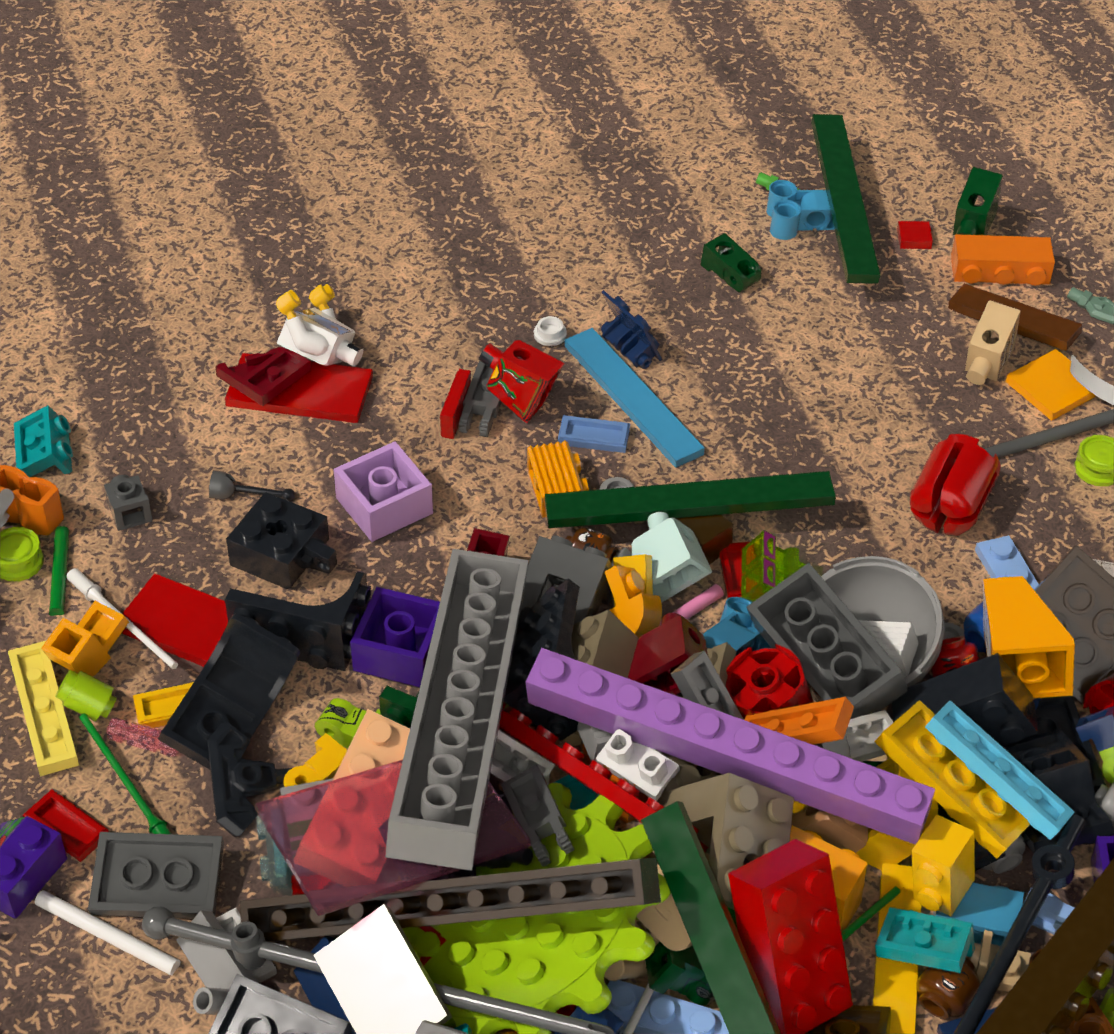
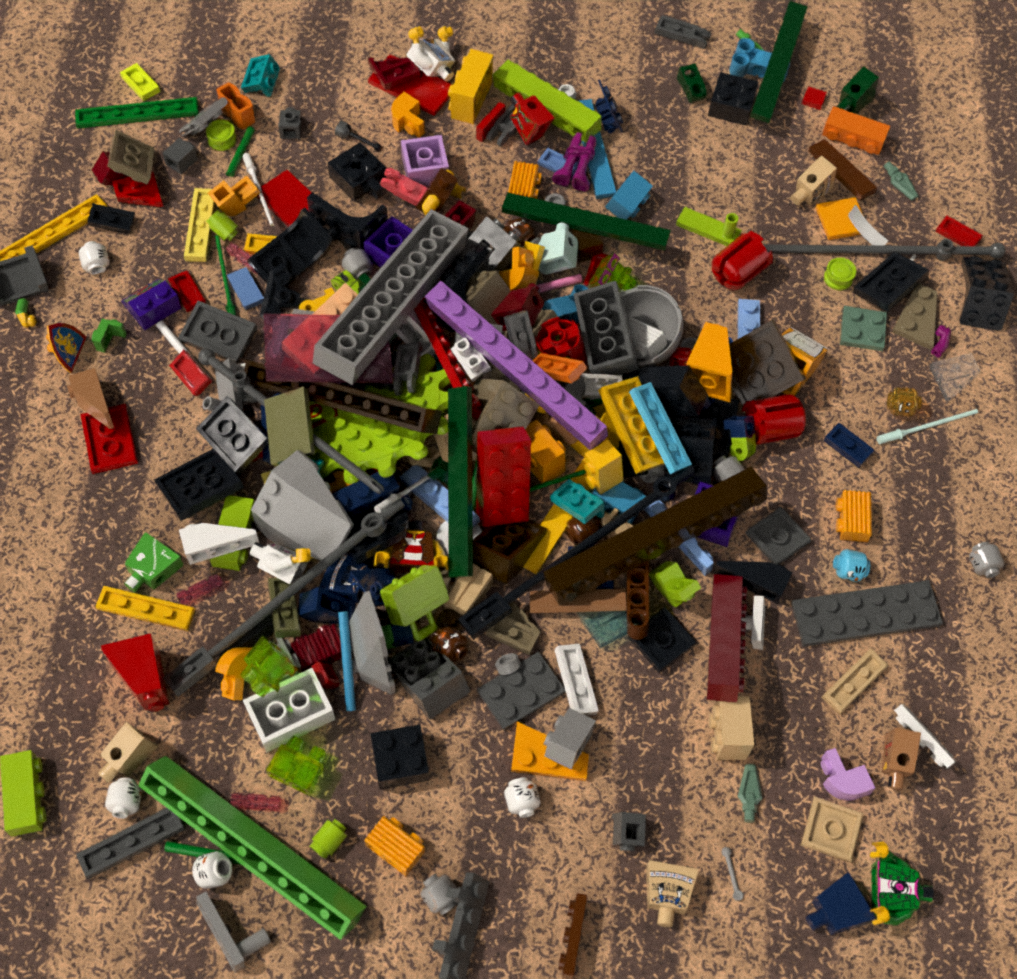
camera: 20 degrees right, 15 degrees up
(137, 963) = (190, 373): none -> red tile
(170, 786) = (245, 288): none -> medium blue tile
(314, 435) = (405, 113): none -> light orange brick
(349, 681) = (357, 262): none -> light grey head
(379, 541) = (405, 188): none -> coral hinge
(403, 360) = (471, 86): none -> yellow brick
(432, 532) = (439, 190): none -> reddish brown torso
(587, 358) = (567, 112): none -> lime brick
(613, 411) = (574, 154): none -> magenta piece
(676, 199) = (682, 31): none -> dark grey hinge
(730, 445) = (629, 196): none -> dark azure brick
(804, 266) = (733, 98): none -> black brick
(873, 455) = (709, 227): none -> lime piece

